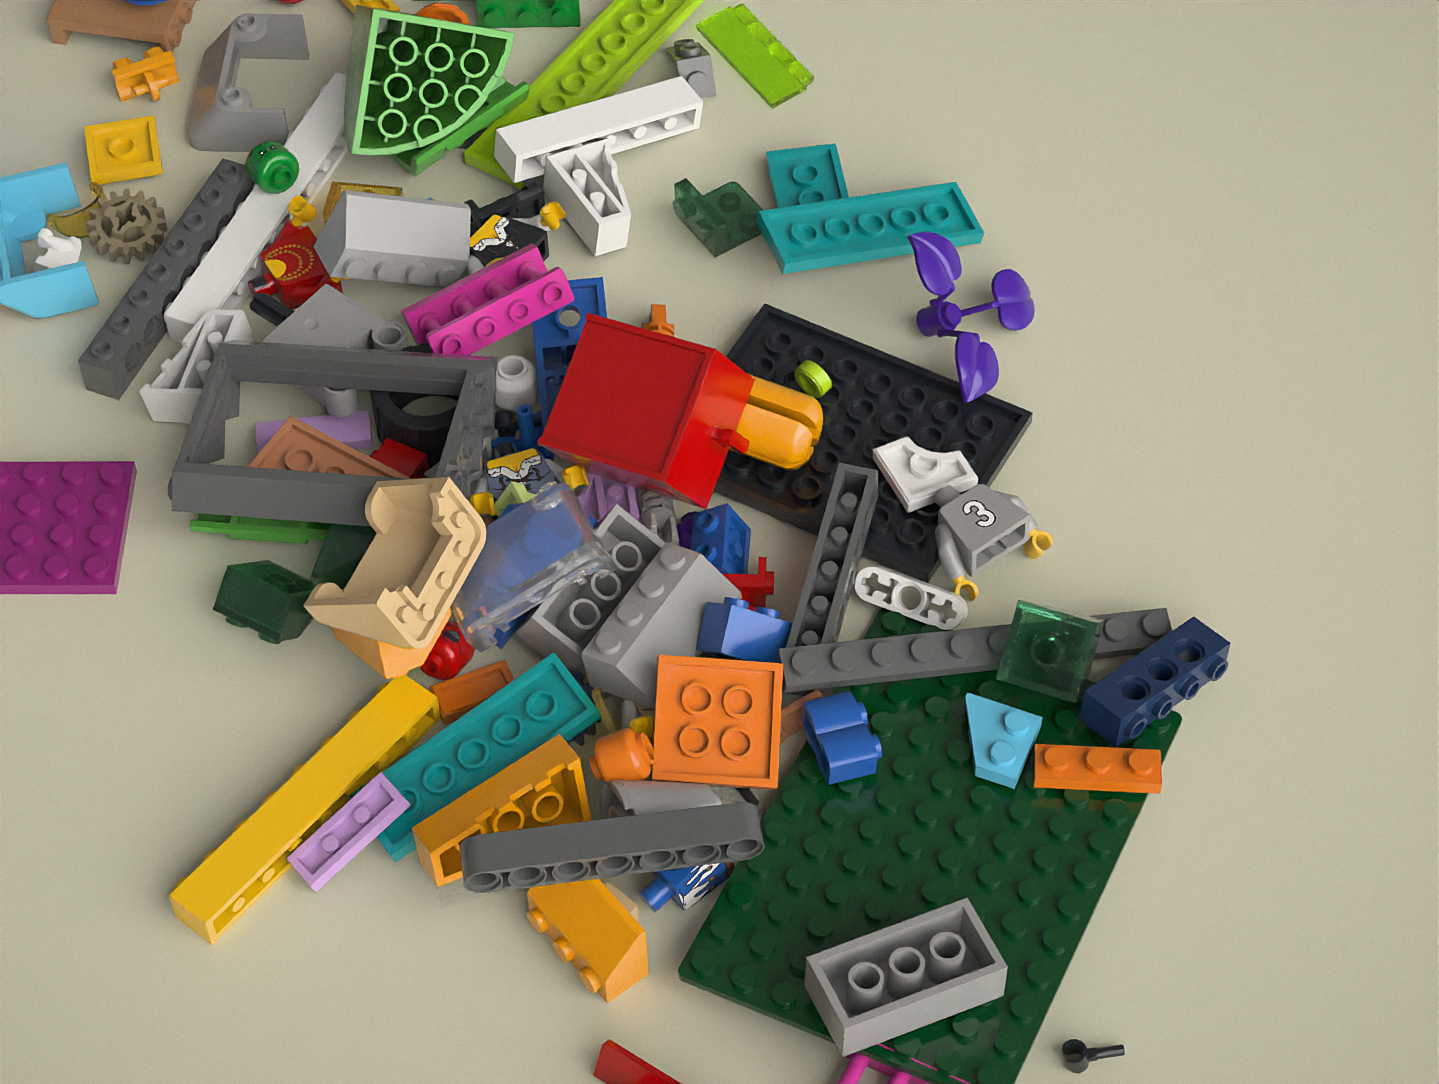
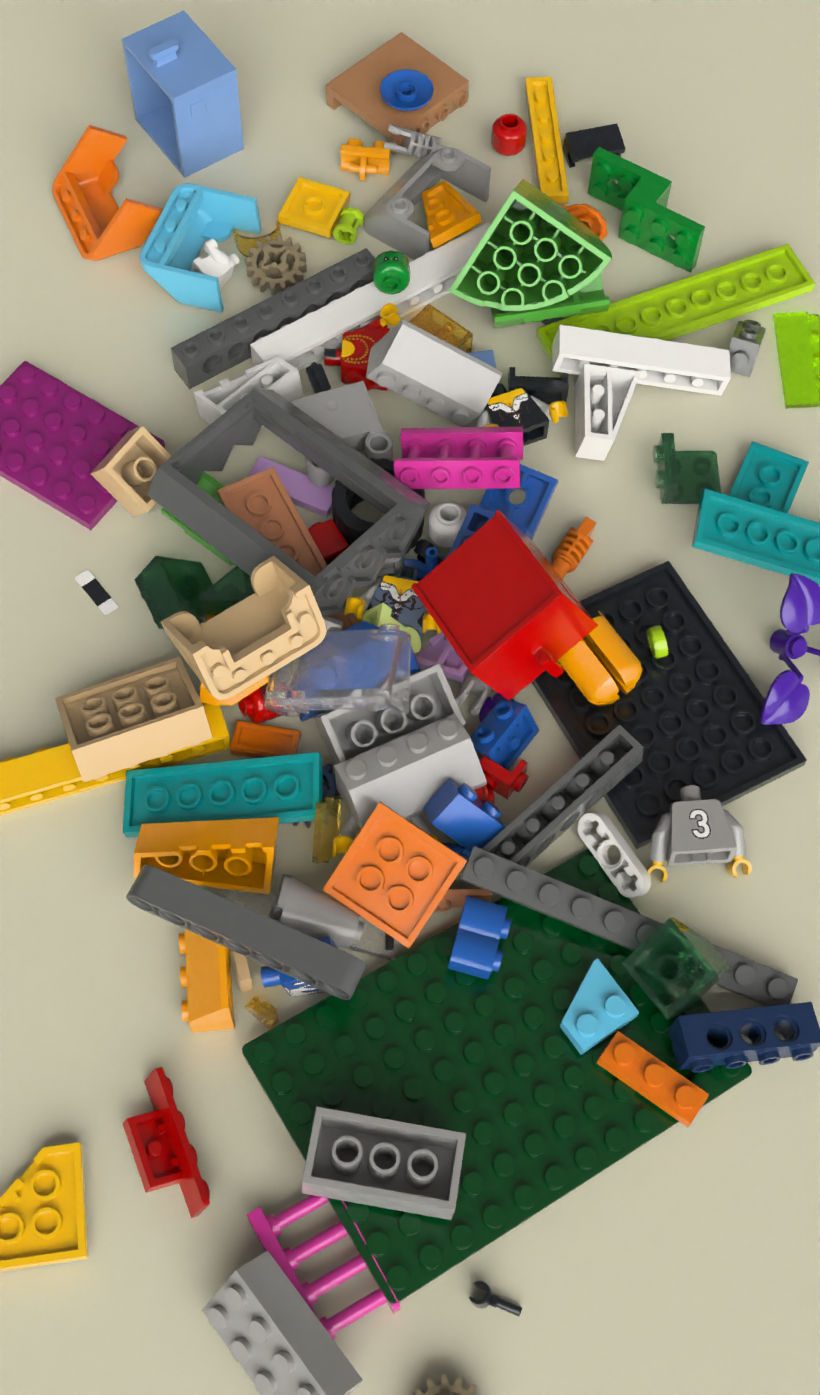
camera: 30 degrees right, 10 degrees up
(133, 501) = (130, 469): none -> tan brick
(171, 650) = (96, 592): none -> sticker
(179, 156) = (348, 226): none -> lime bush
(192, 32) = (414, 143): none -> light grey hinge
(283, 83) = (447, 213): none -> light orange wing
(326, 732) = (133, 719): none -> tan slope
(348, 831) = (105, 798): lavender plate -> none
(622, 756) = (308, 863): orange head -> none
(669, 938) = (263, 1012): none -> clear yellow tile
(920, 474) = (687, 763): white tile -> none

